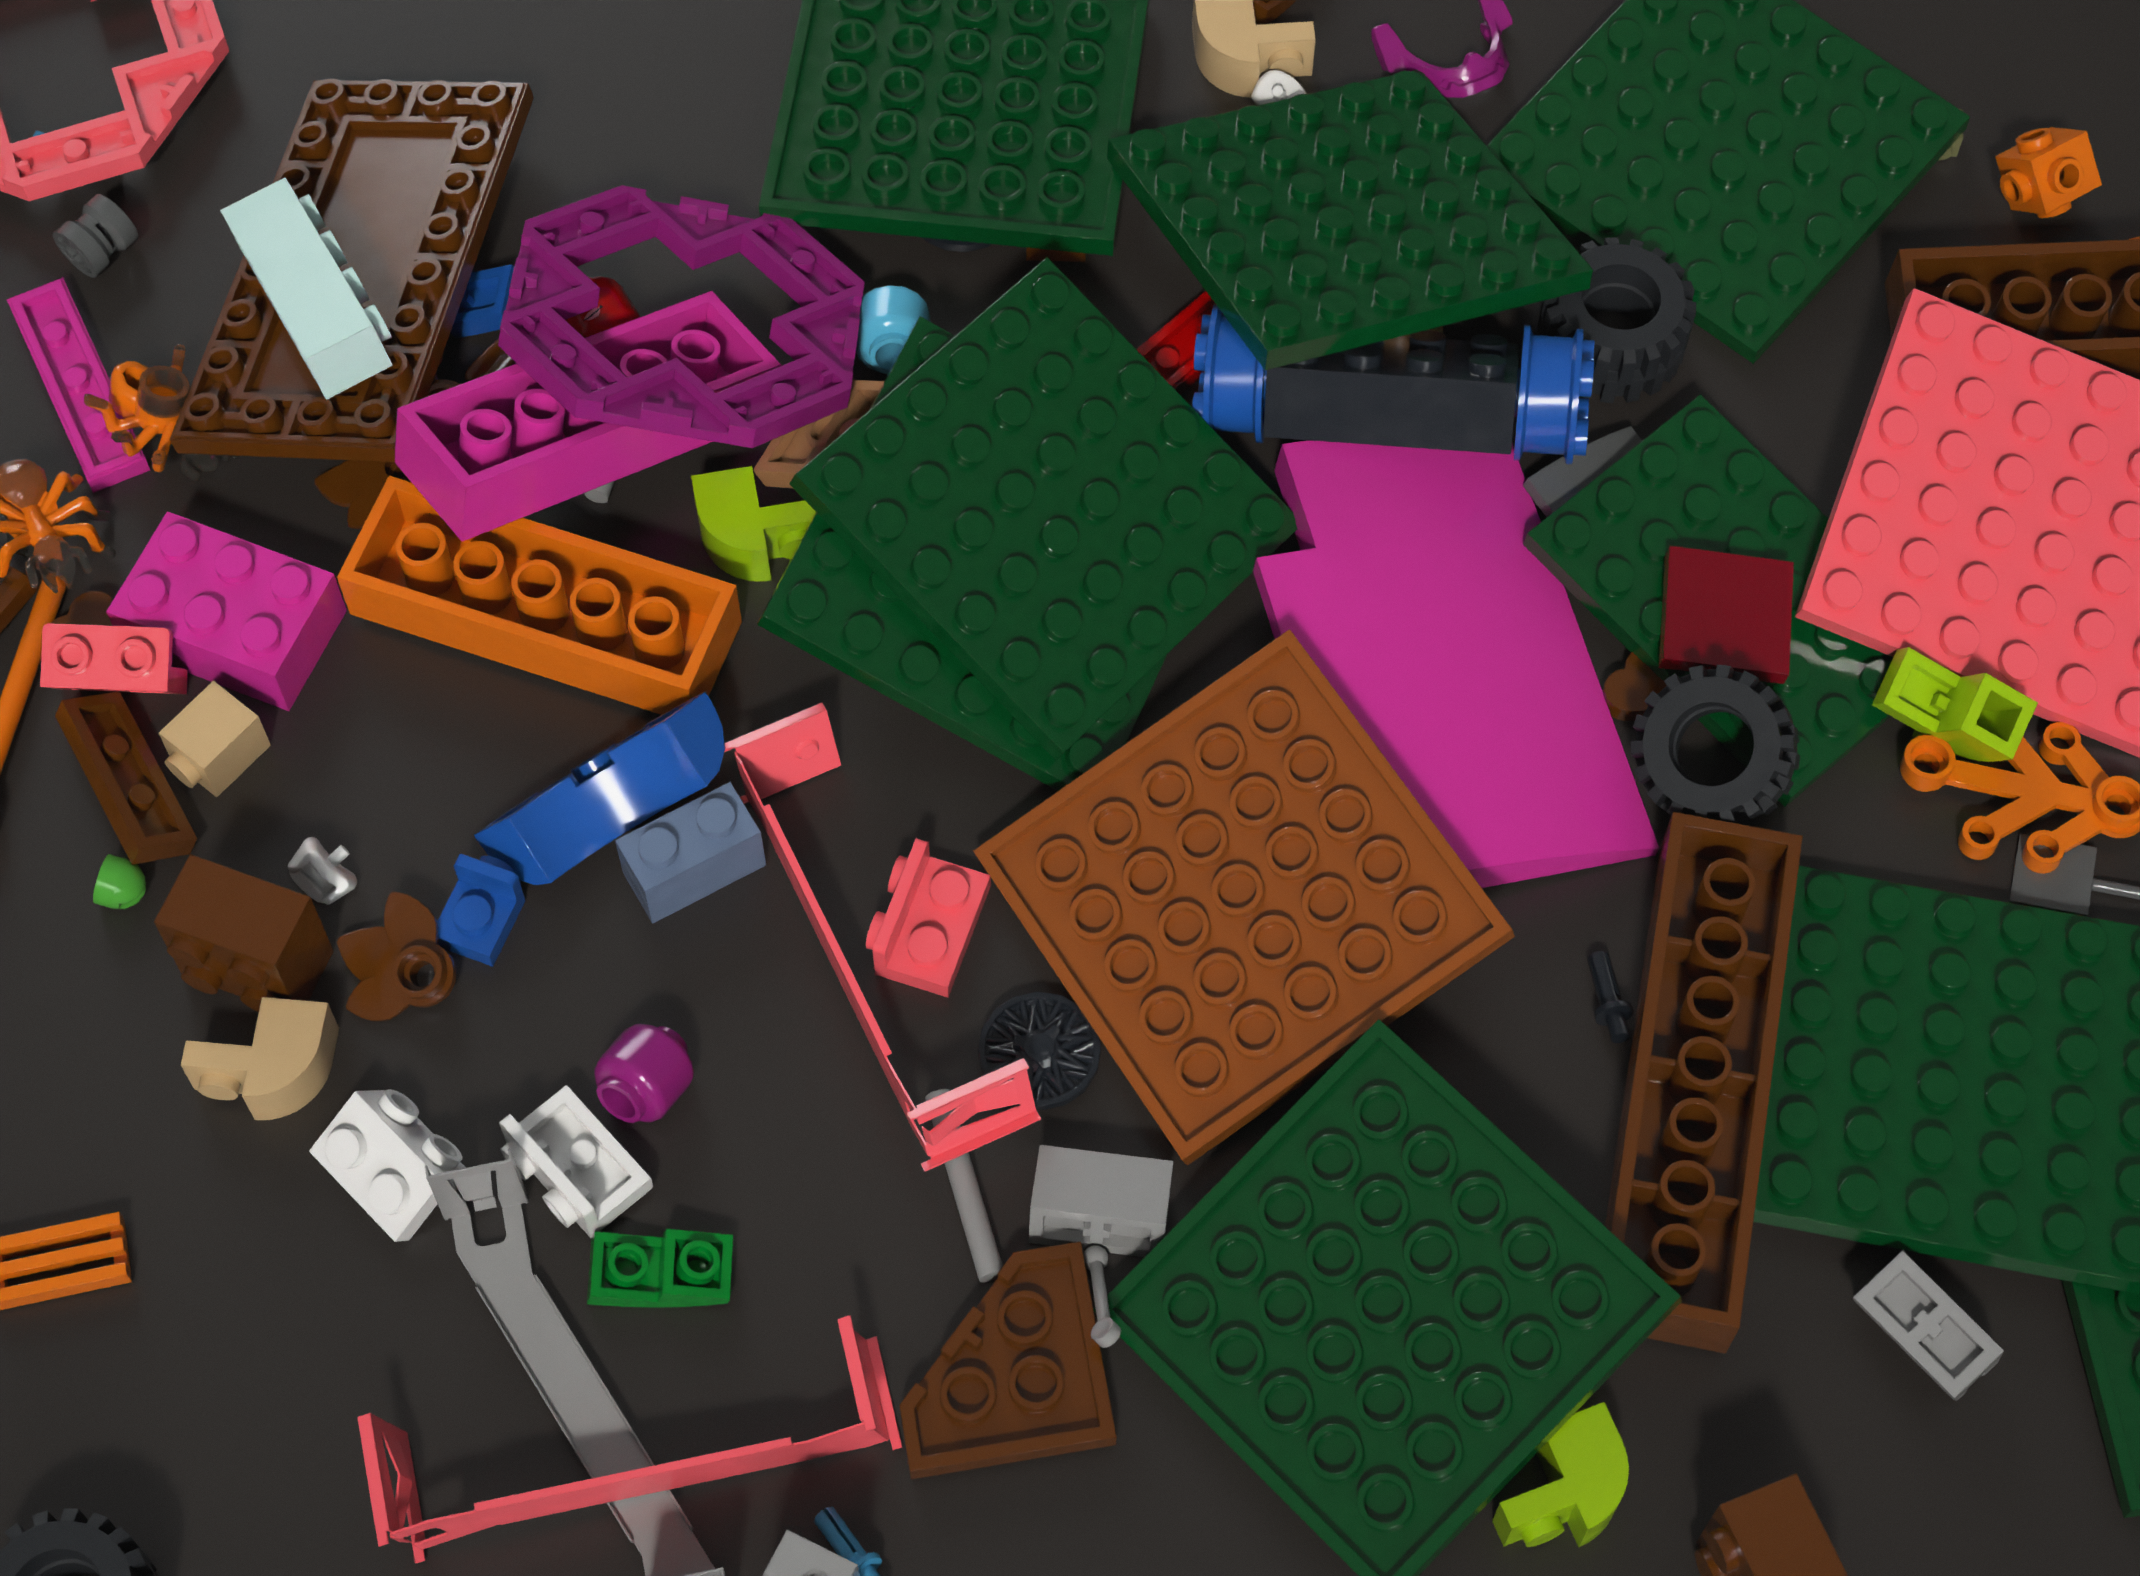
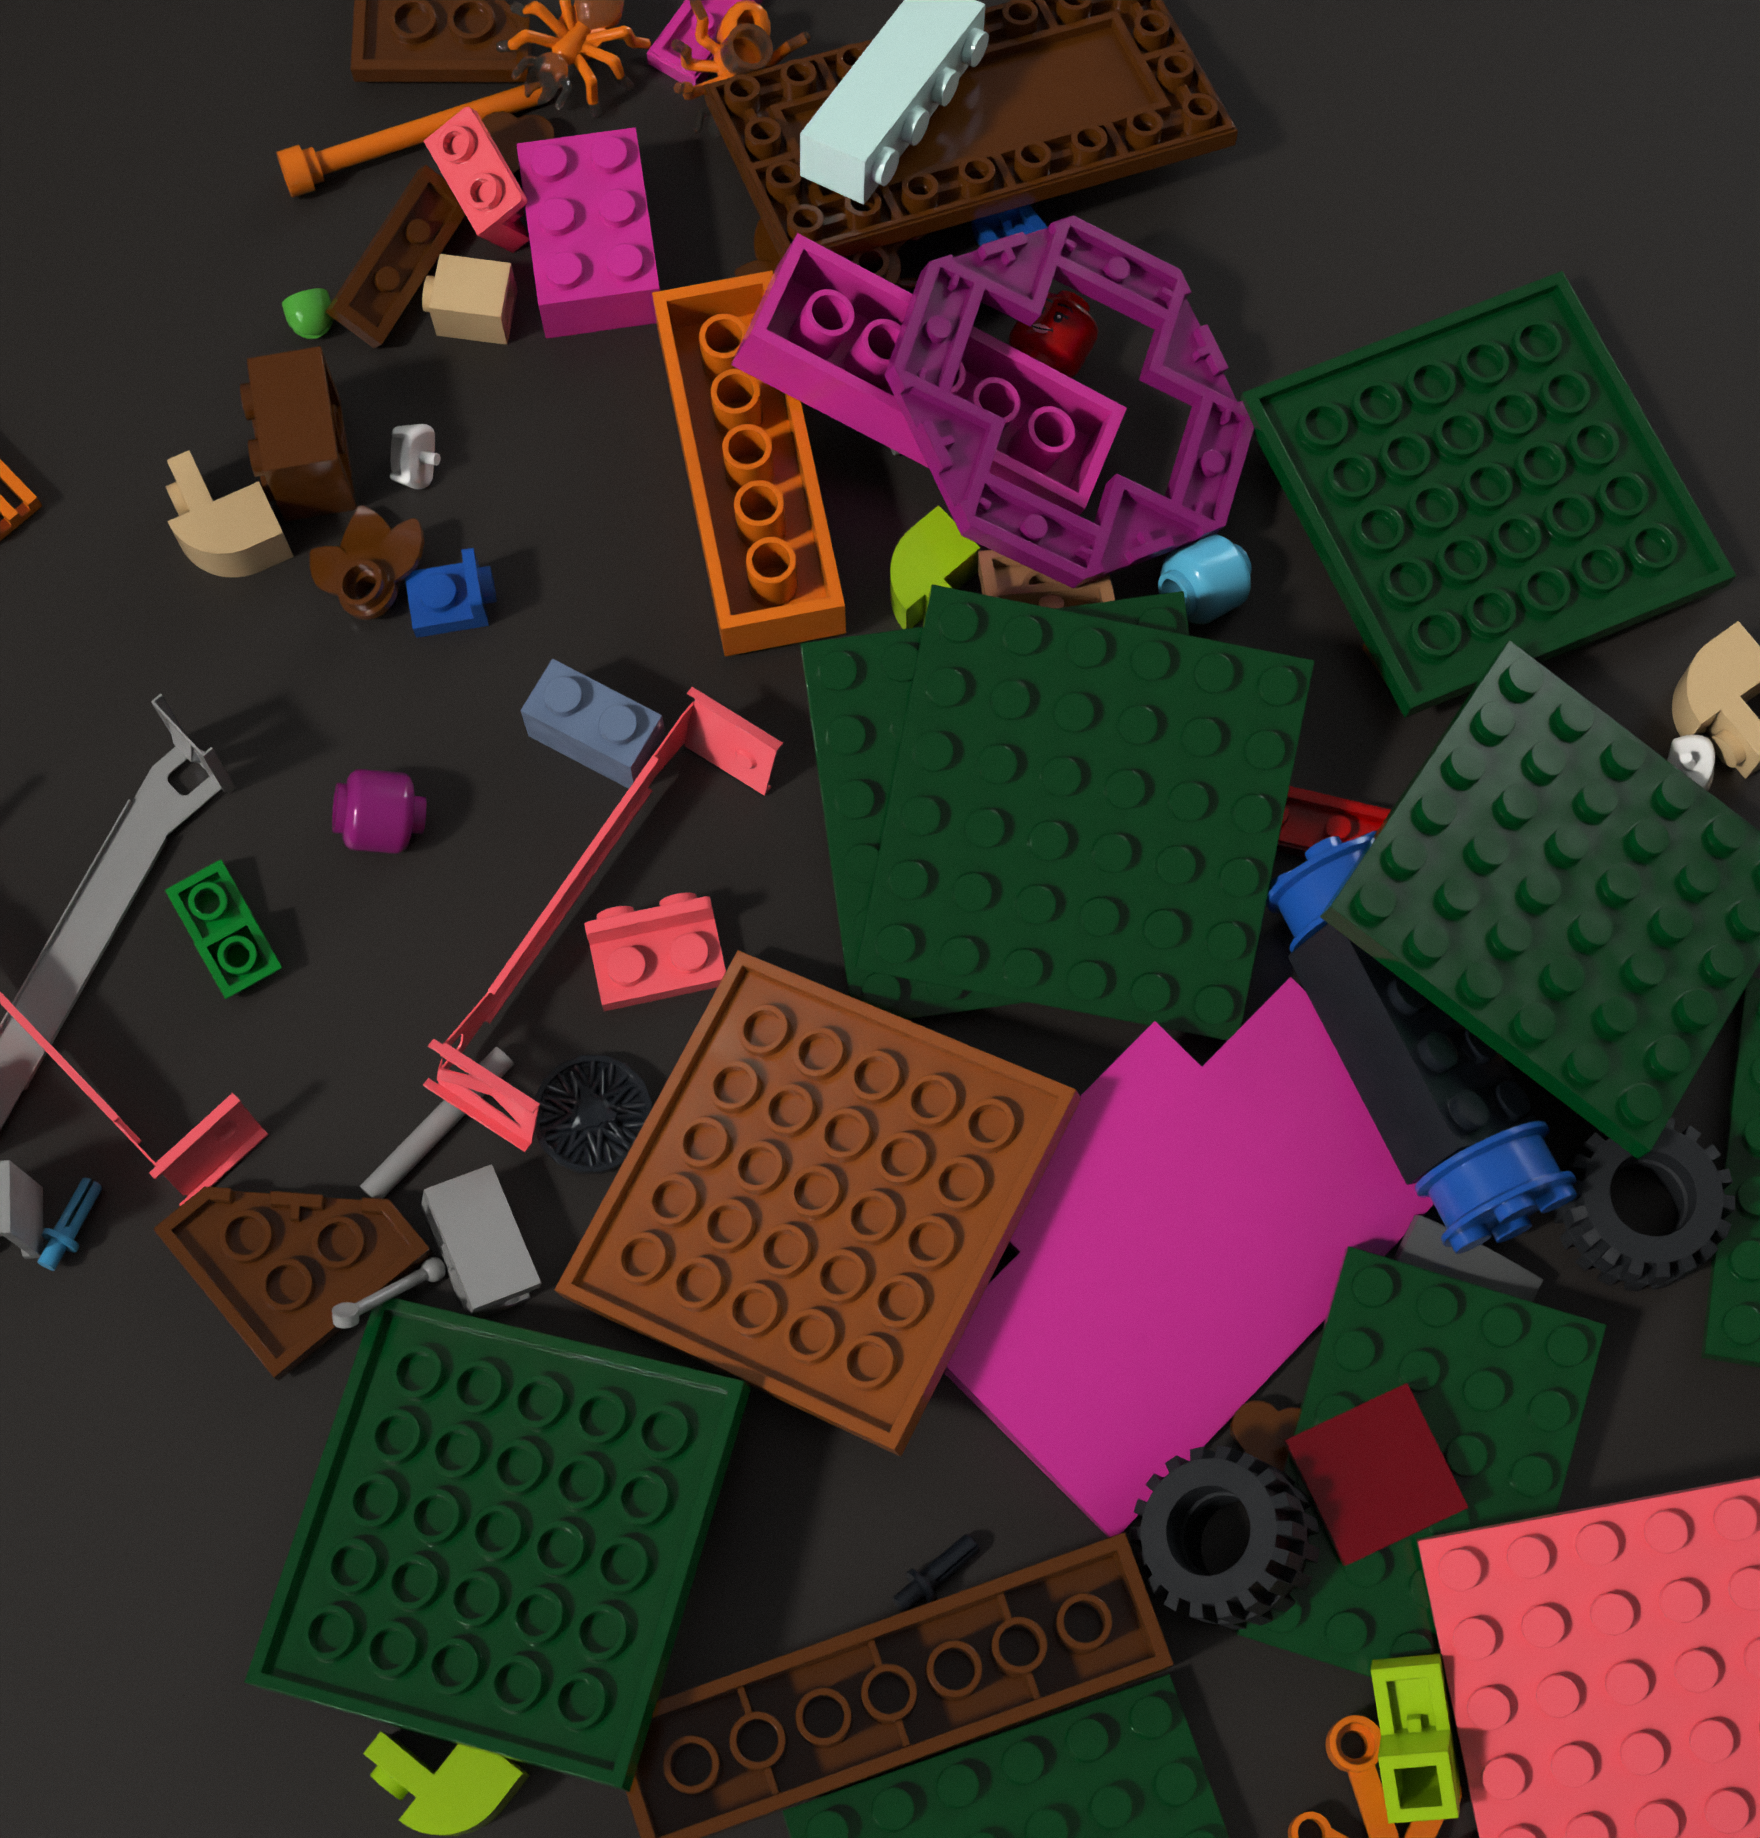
camera: 60 degrees right, 10 degrees up
(380, 1158) = (198, 666): white bracket -> none
(577, 1162) = (268, 805): white bracket -> none
(609, 793) = (612, 632): blue brick -> none

